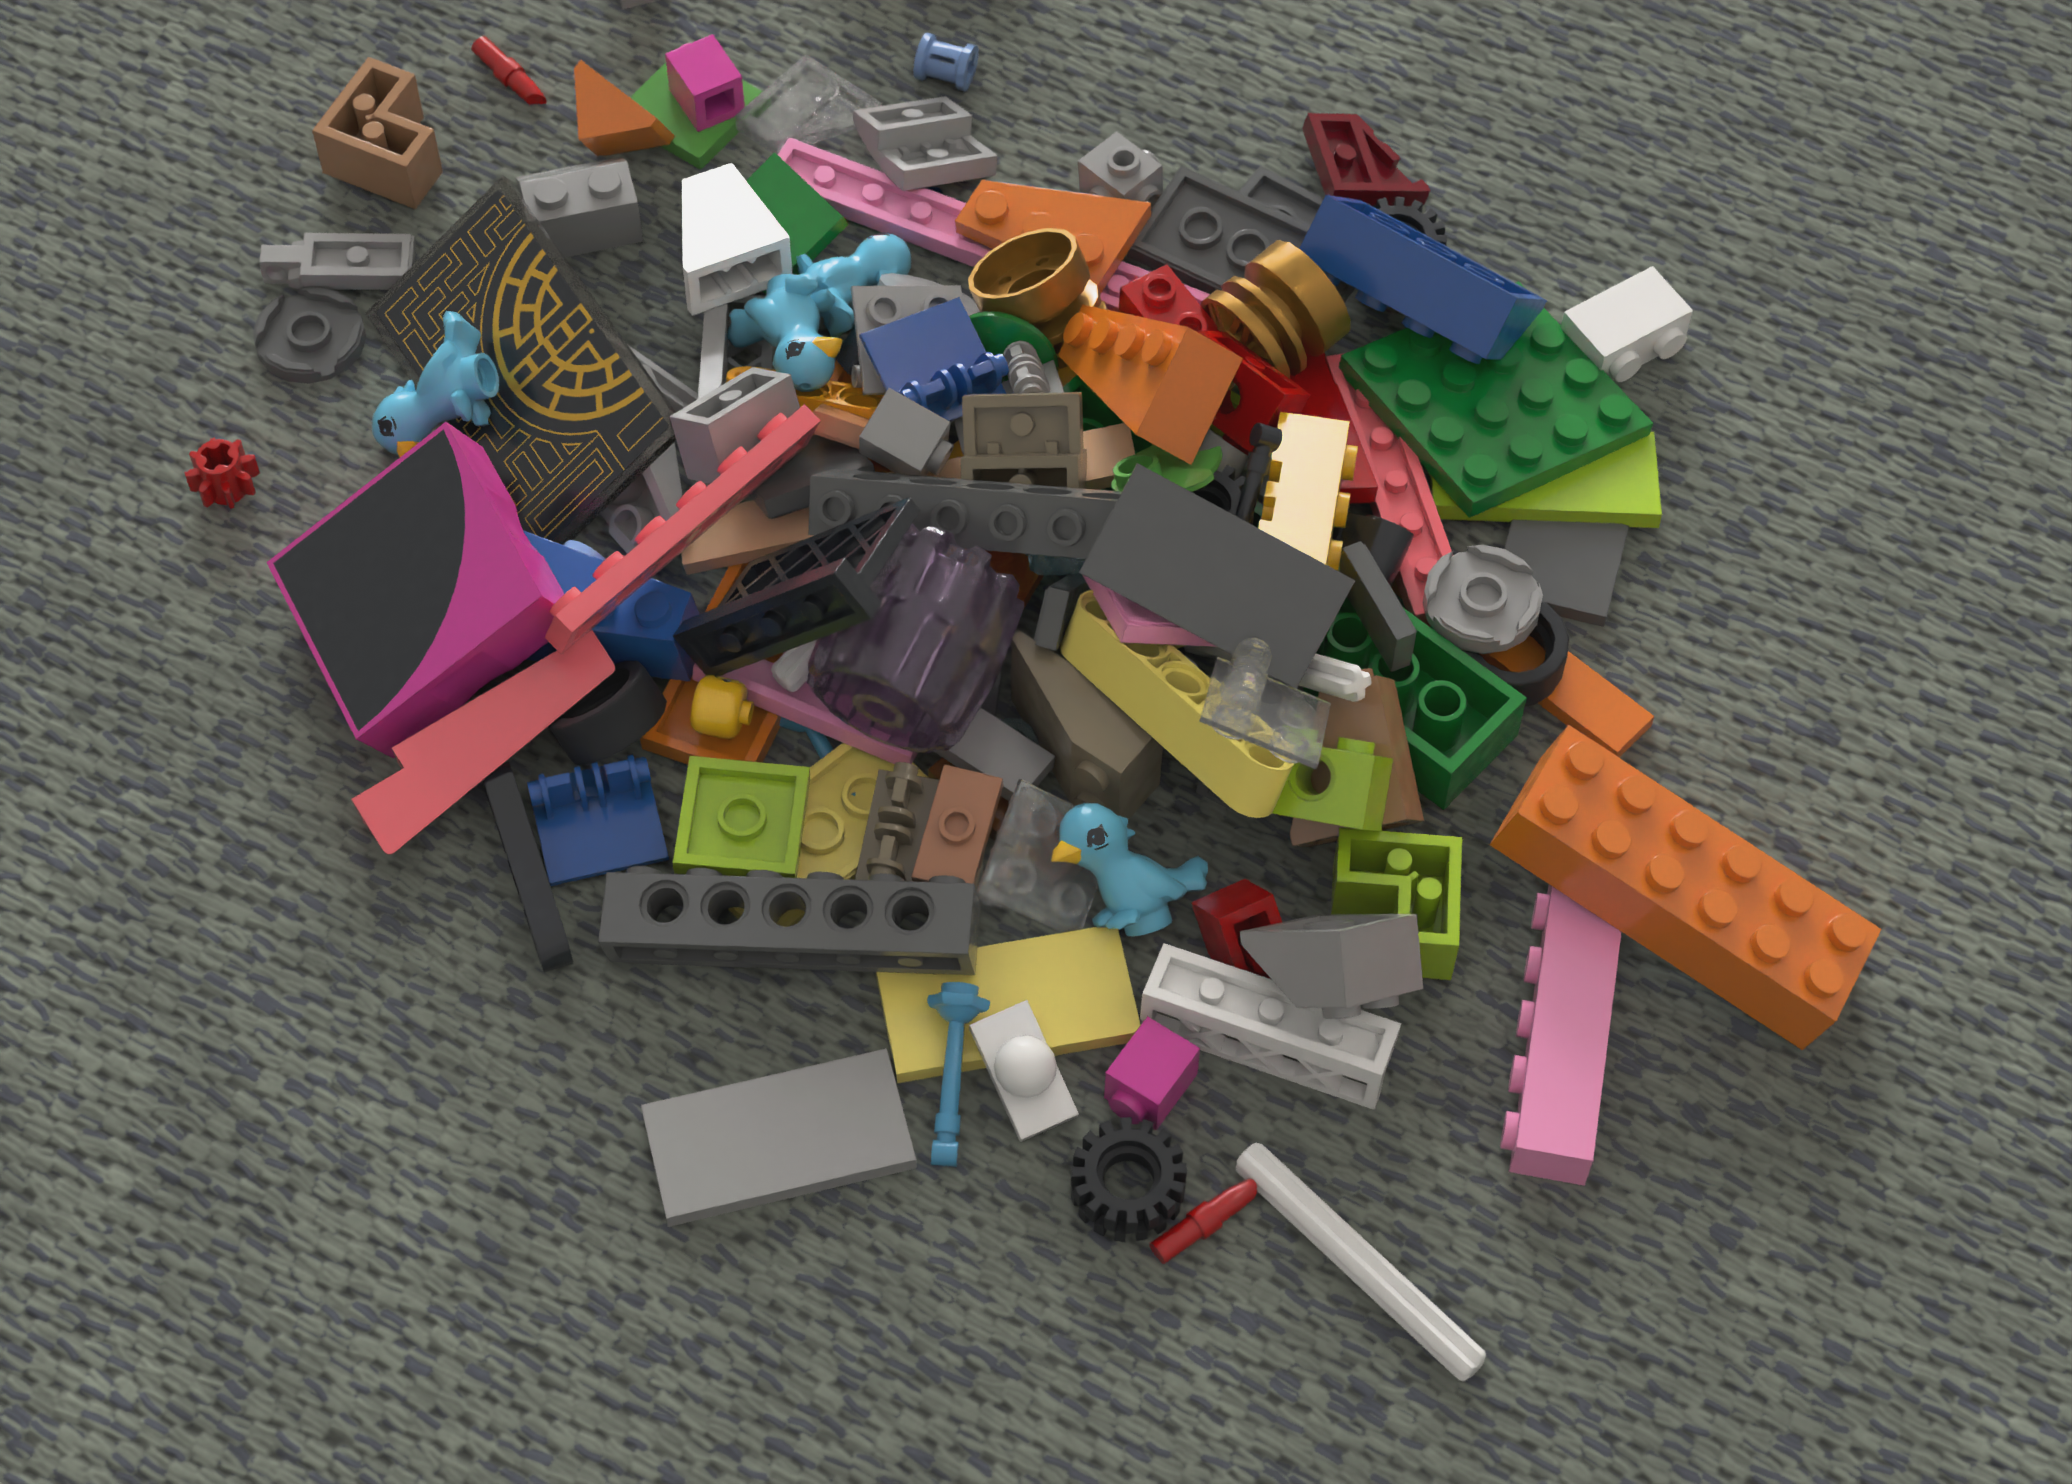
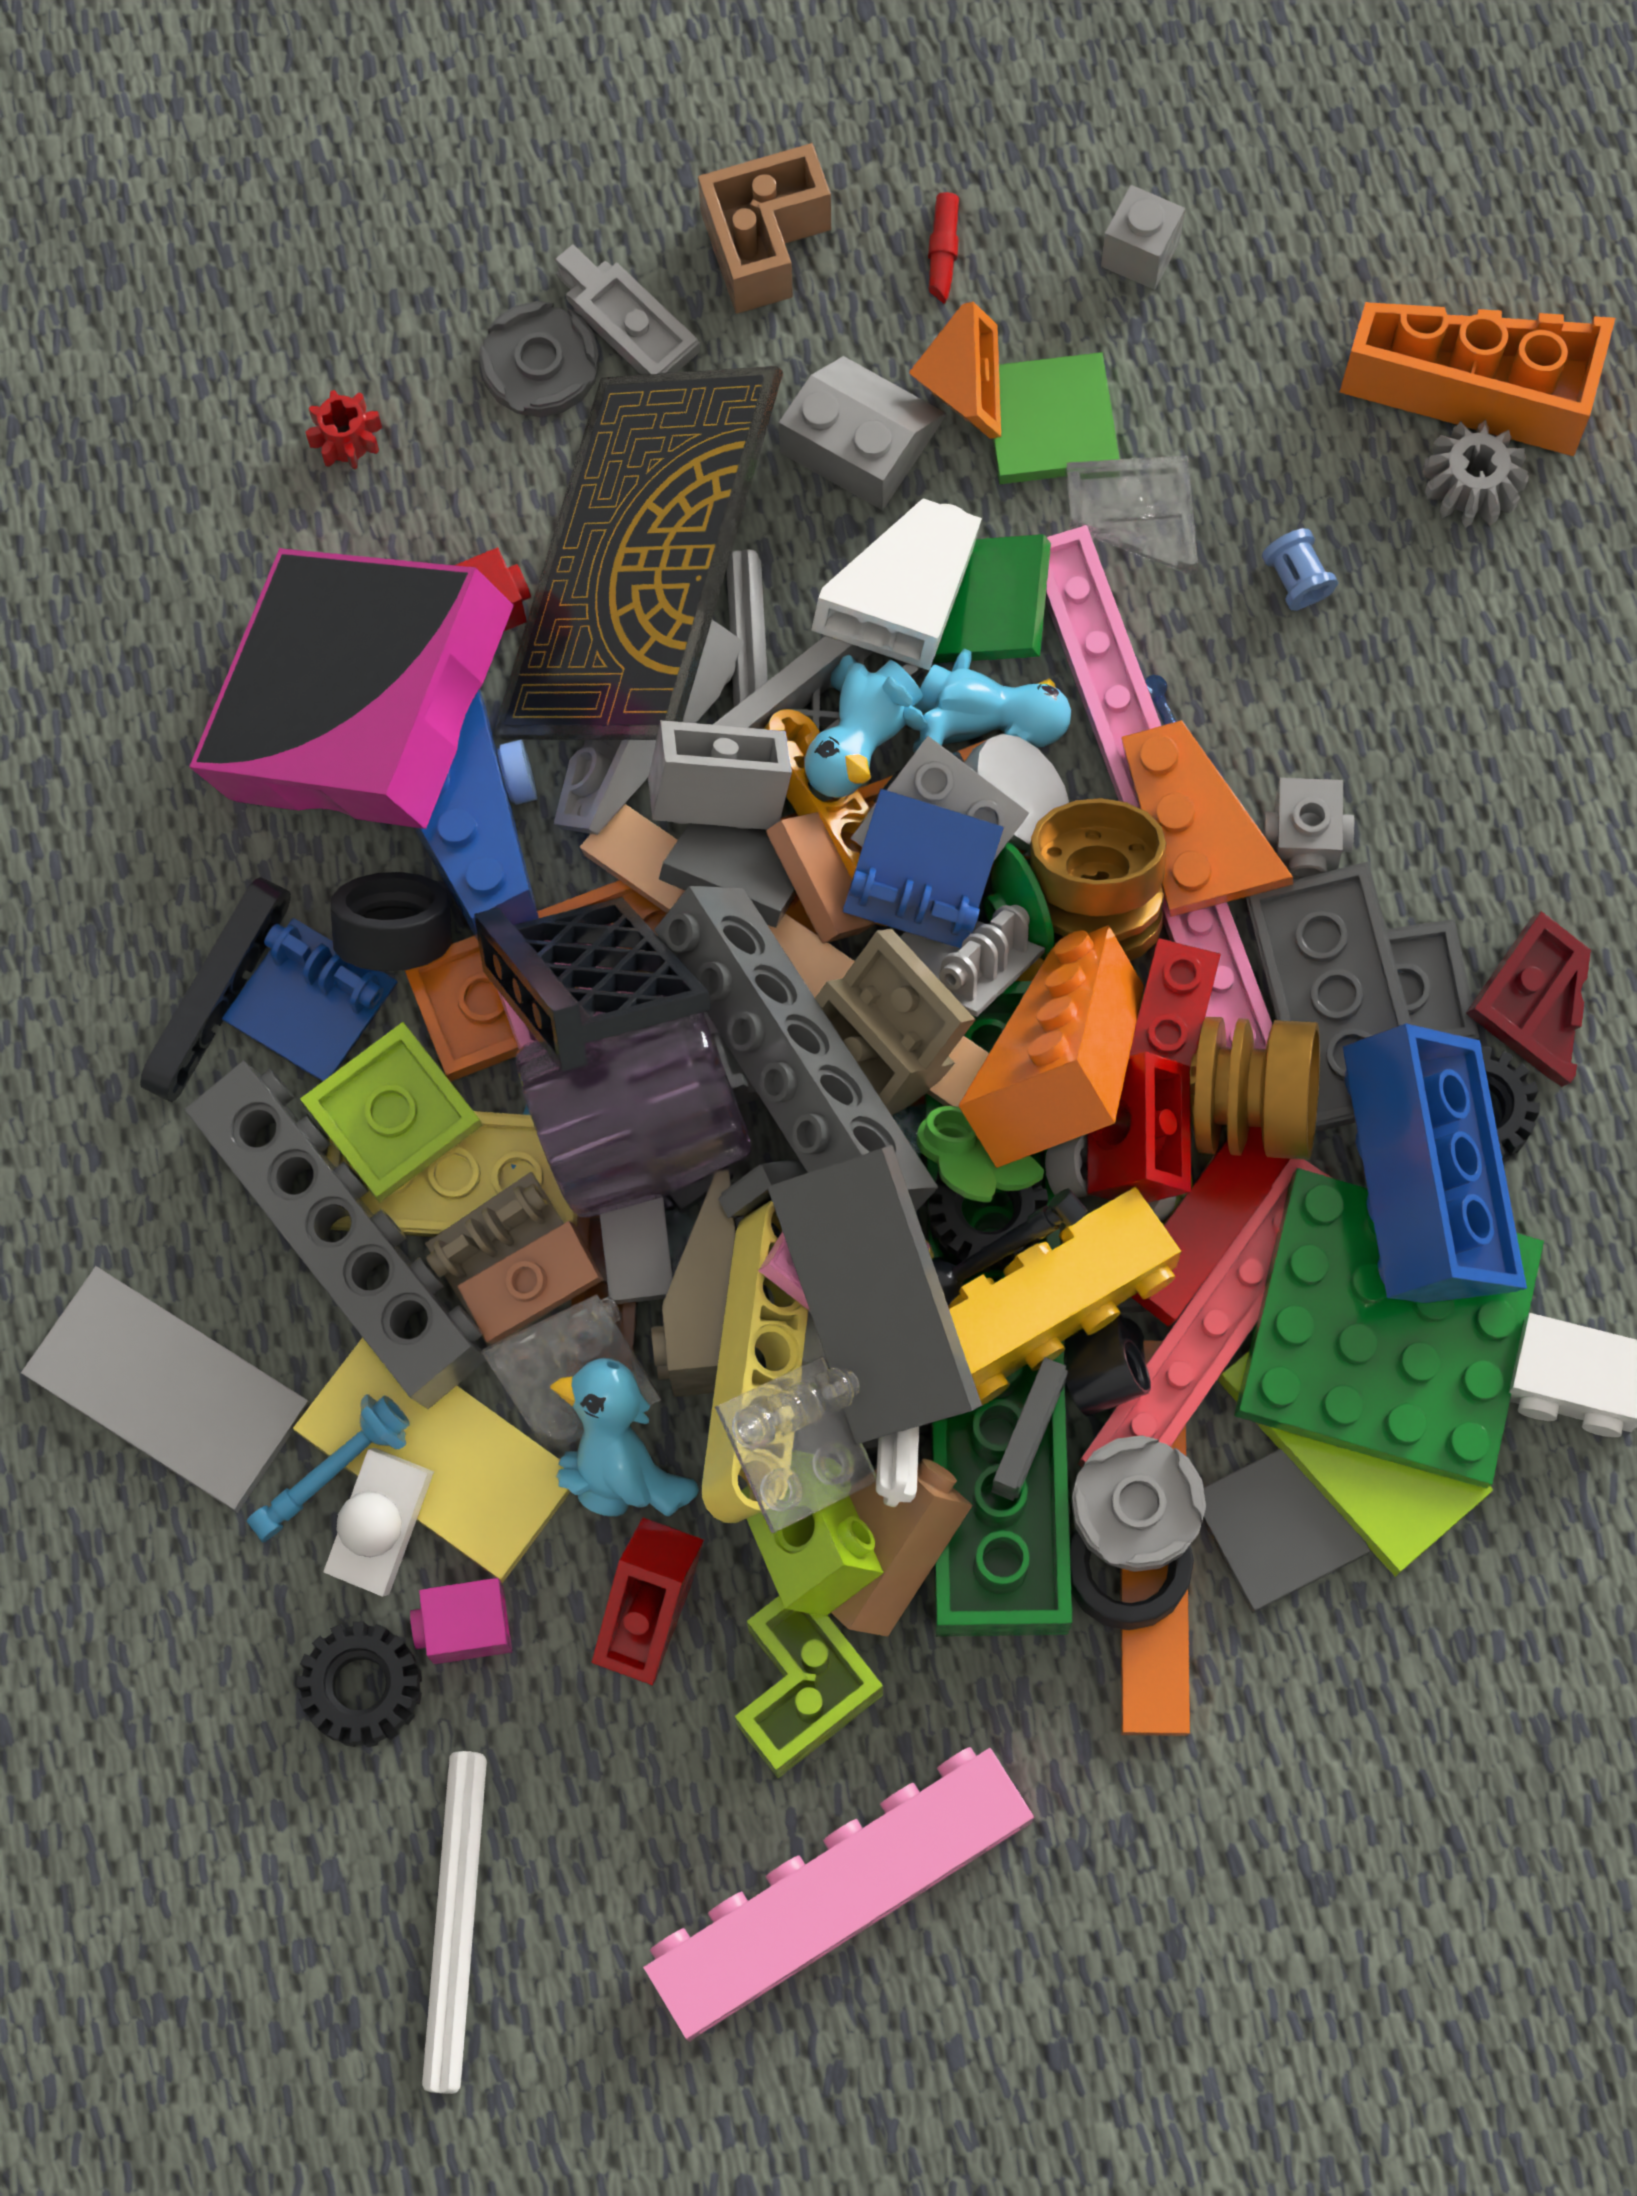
camera: 50 degrees right, 15 degrees up
(448, 388) = (564, 518): medium azure animal -> none
(475, 740) = (271, 854): coral wedge -> none
(664, 540) = (538, 827): coral plate -> none
(705, 82) = (1066, 410): dark pink brick -> none
(720, 707) = (469, 1002): yellow piece -> none
(906, 437) = (816, 918): light grey brick -> none
(924, 143) = (1192, 633): light grey slope -> none
(1203, 1220) = (381, 1771): red piece -> none
(1234, 1002) = (588, 1673): white fence -> none
(1340, 960) = (667, 1685): light grey slope -> none
(1687, 888) = (1006, 1909): orange brick -> none

